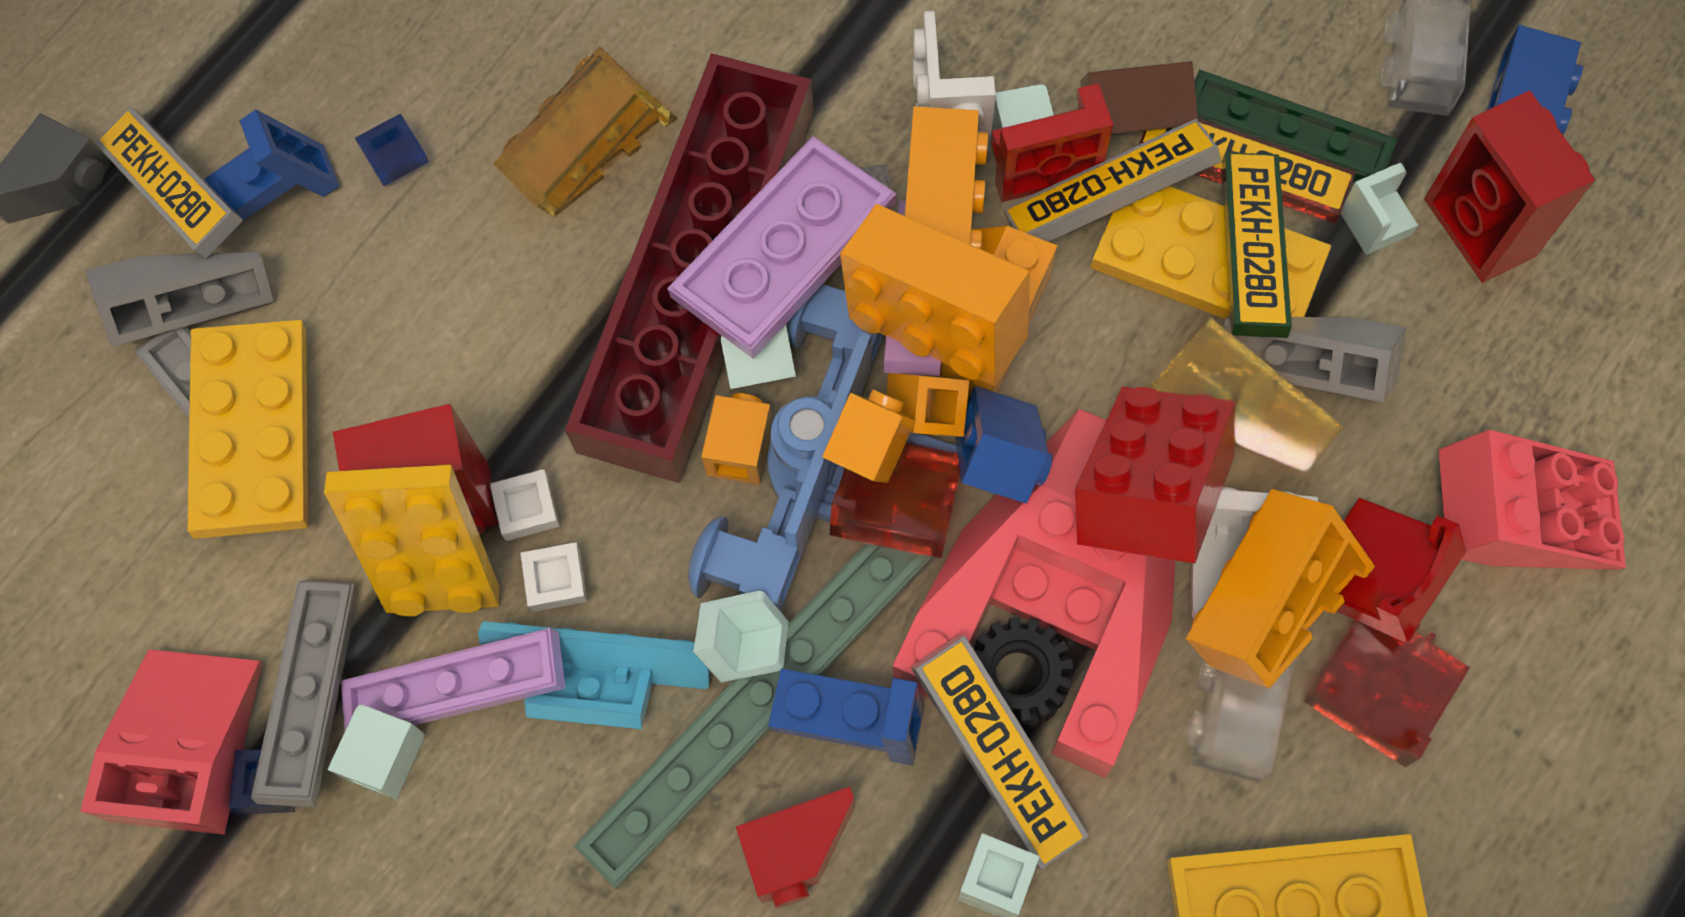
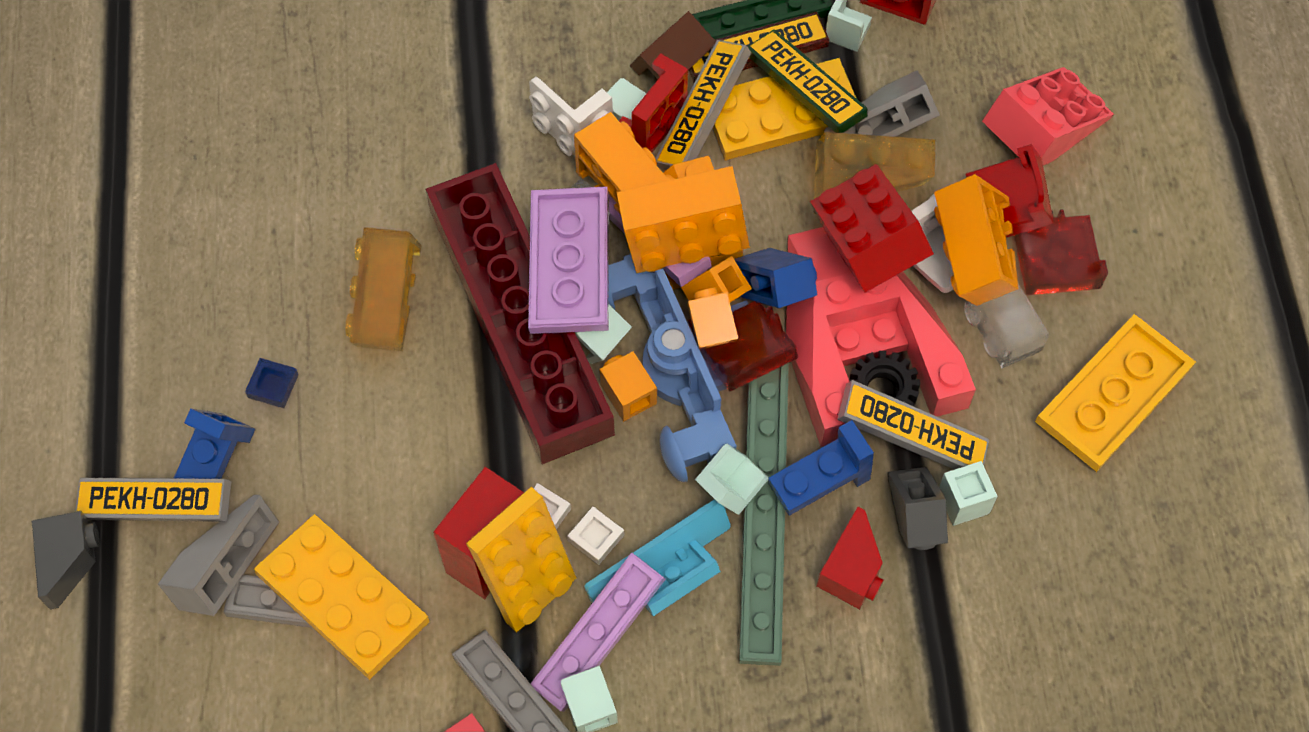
camera: 45 degrees left, 5 degrees down
(927, 845) = (919, 508): none -> dark grey slope

